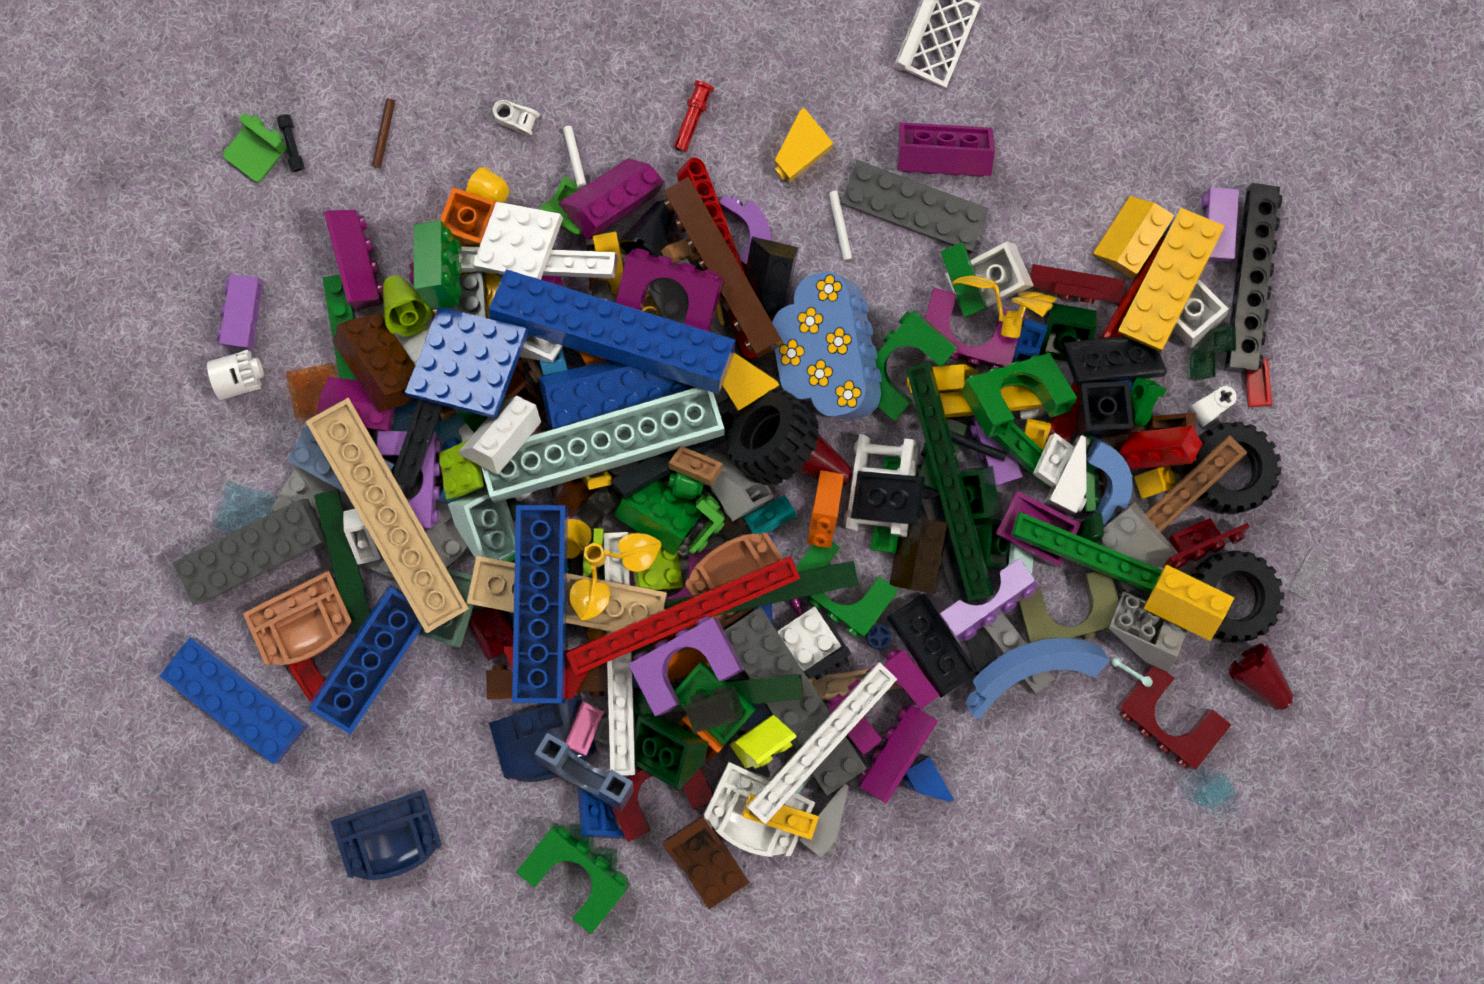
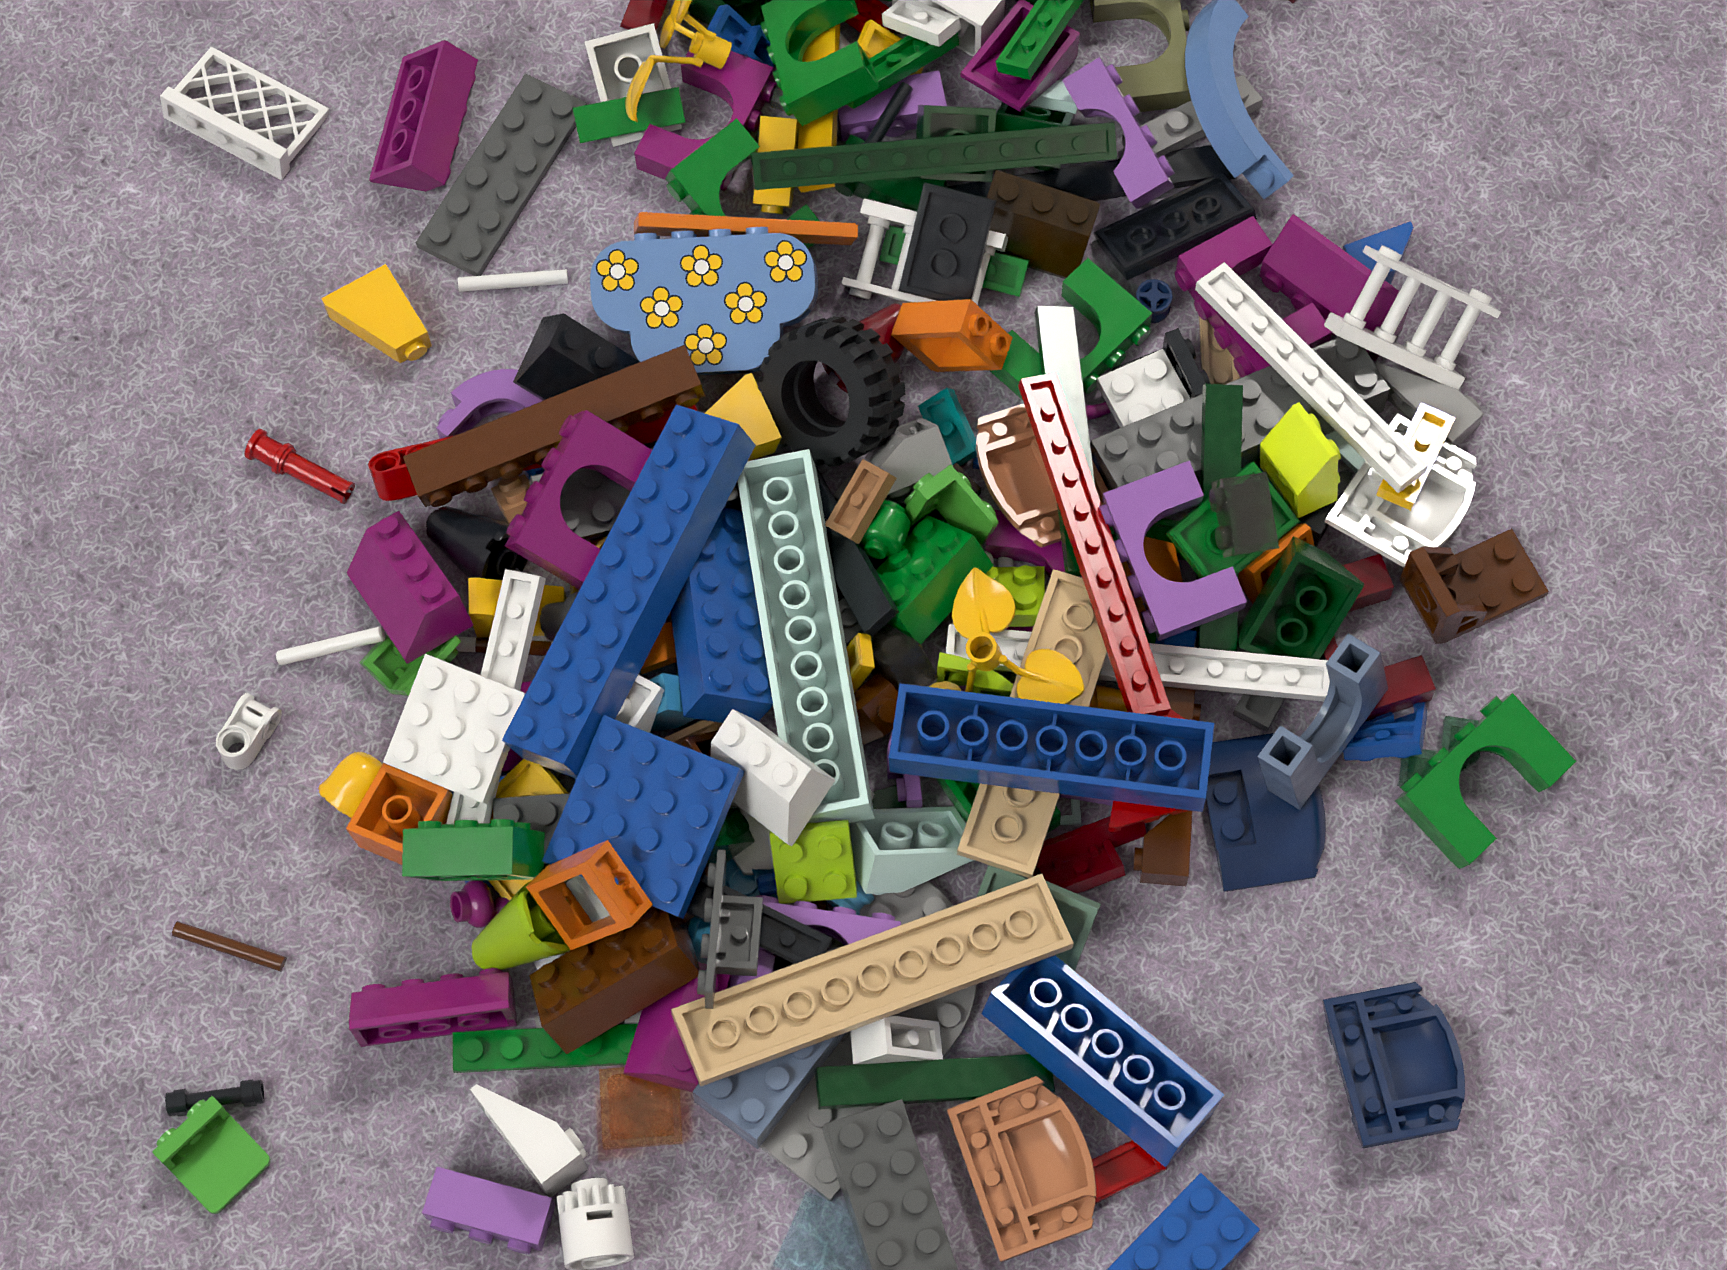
camera: 80 degrees left, 15 degrees down
(279, 330) = (540, 1143): none -> white slope
(400, 427) = (733, 935): none -> dark grey bracket
(412, 334) = (599, 868): none -> orange window
(583, 728) = (1240, 736): bright pink tile -> none
(853, 807) = (1413, 352): none -> white fence
(880, 366) = (805, 231): none -> orange tile

